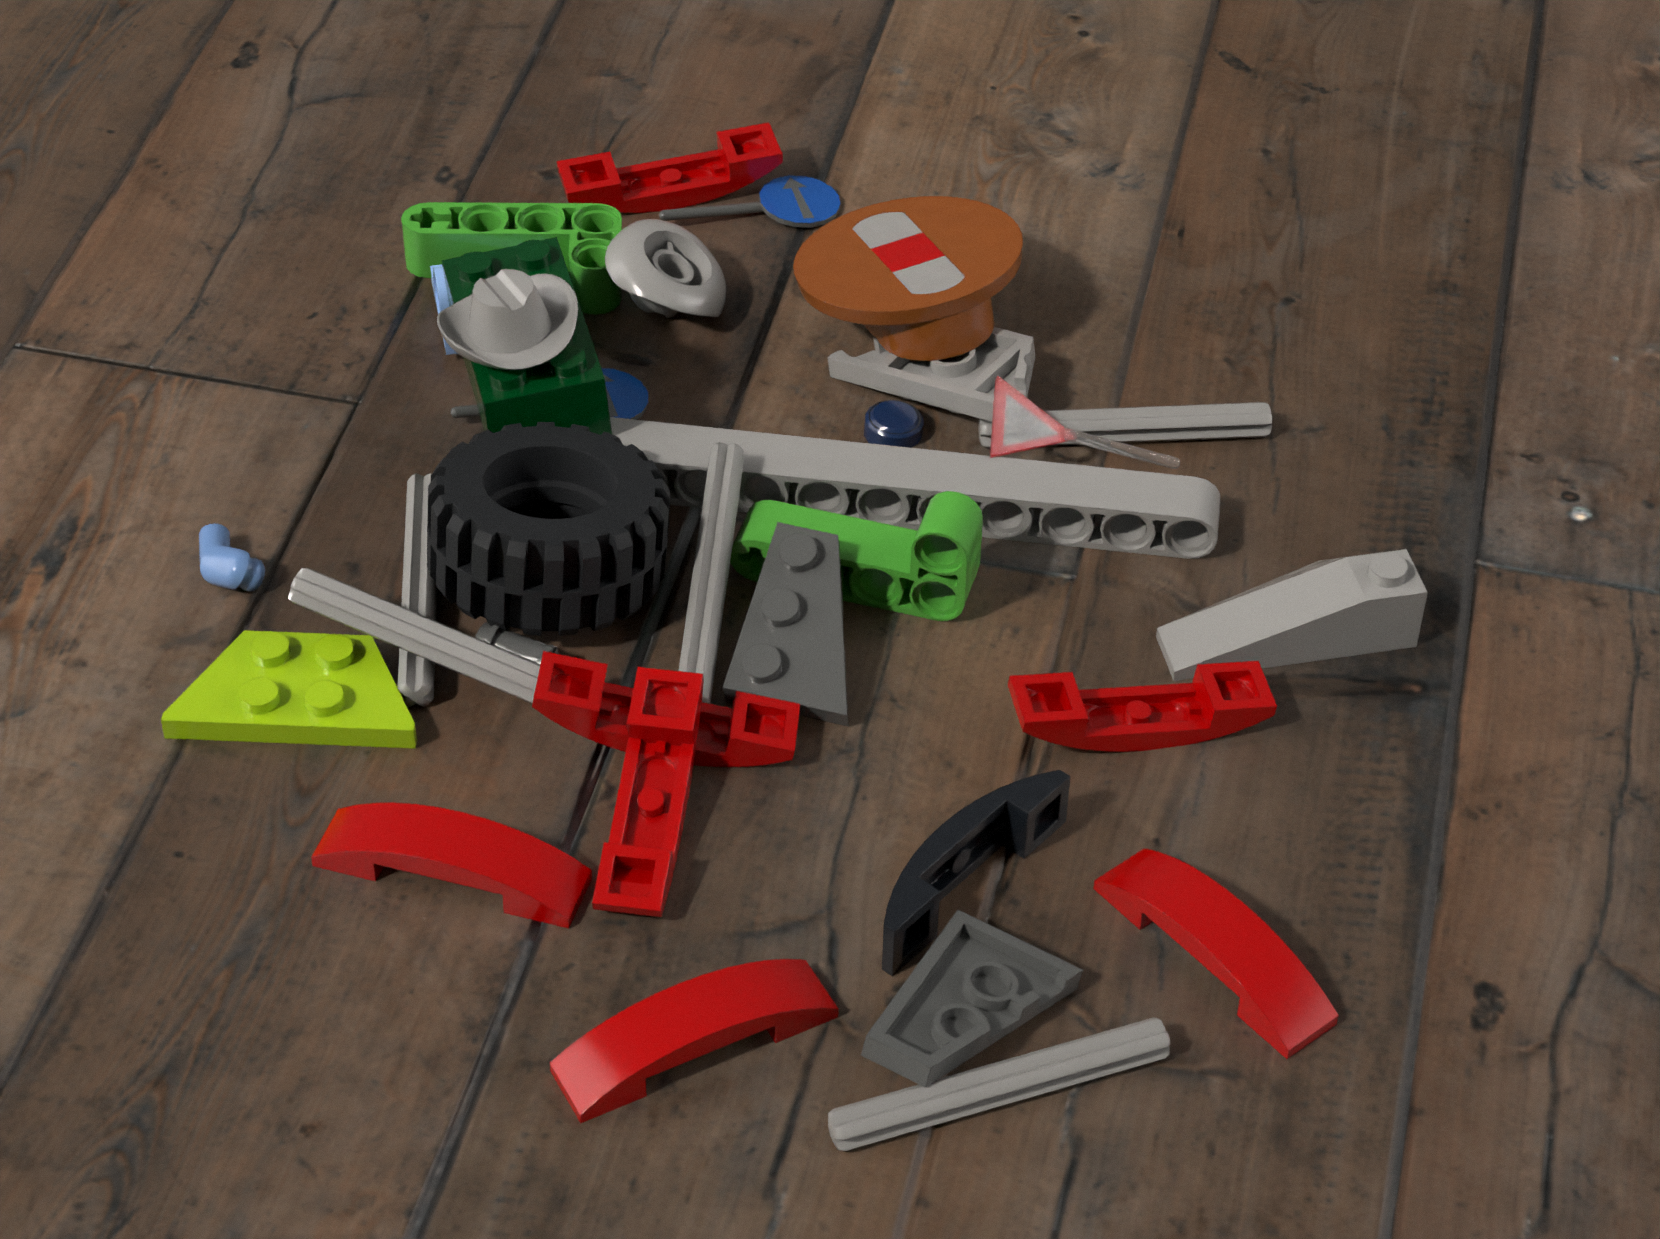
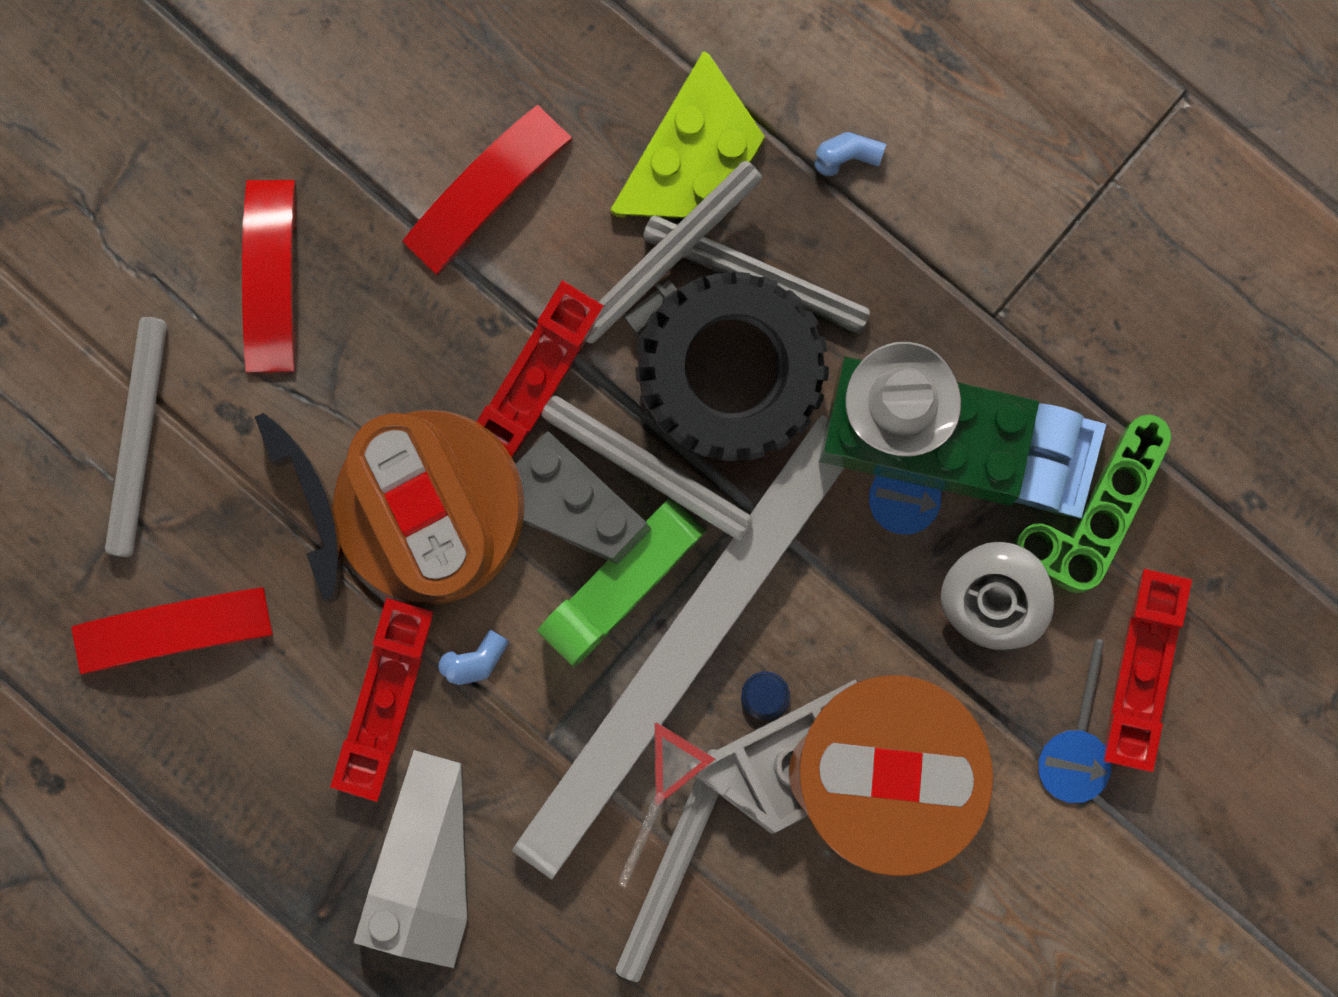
camera: 120 degrees right, 40 degrees up
(651, 794) = (461, 329): red slope -> none
(885, 743) = (428, 505): none -> dark orange piece
(964, 999) = (201, 443): dark grey wing -> none
(1030, 650) = (474, 665): none -> medium blue arm

